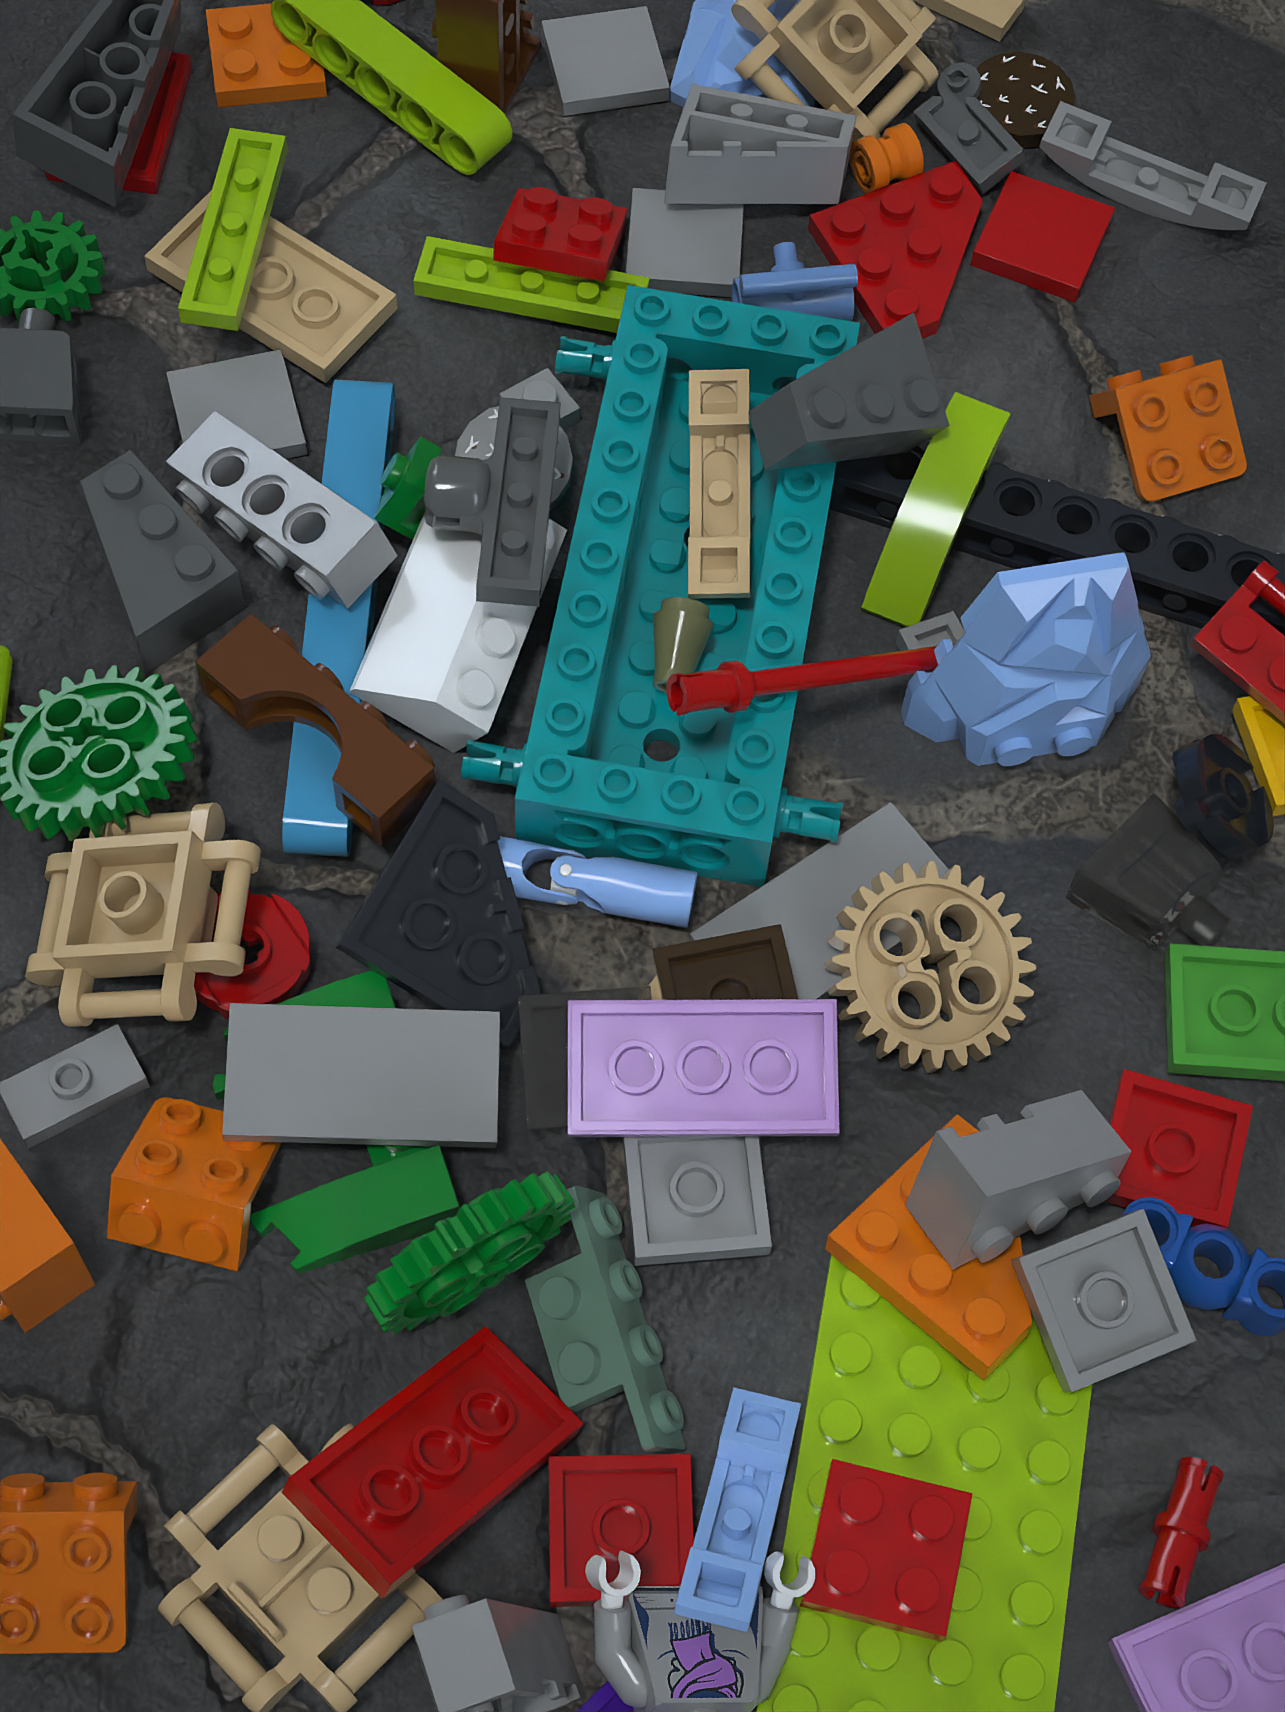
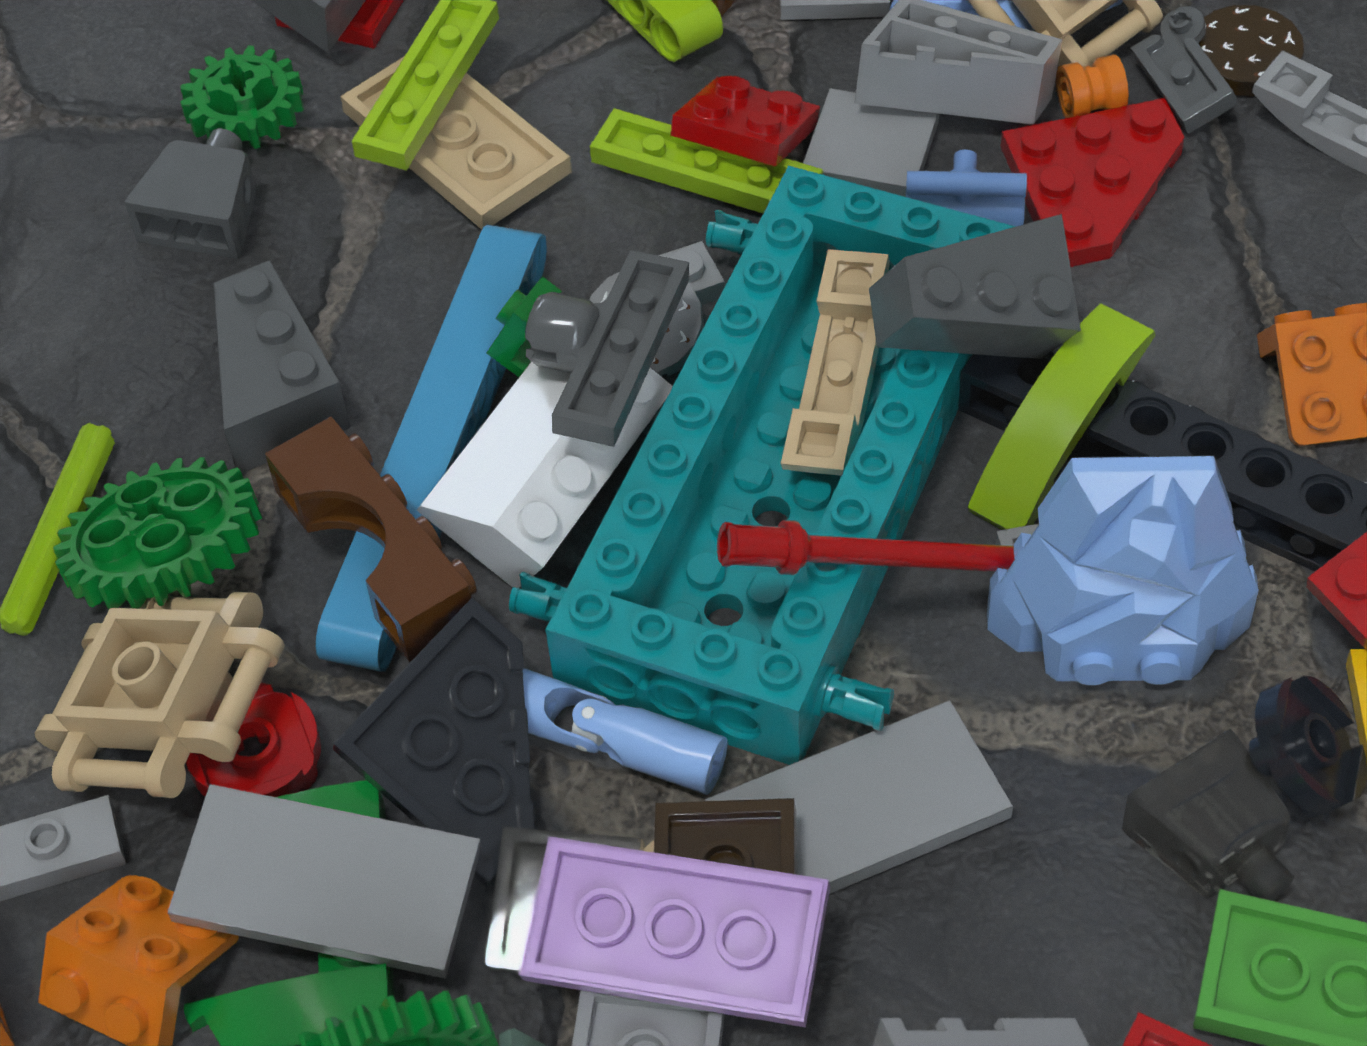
camera: 20 degrees right, 10 degrees down
(246, 391) = (390, 248): light grey tile -> none
(281, 510) = (396, 332): light grey brick -> none
(679, 637) = (765, 495): olive cone -> none
(875, 976) = (1011, 870): tan gear -> none
(1042, 236) = (1241, 179): red tile -> none

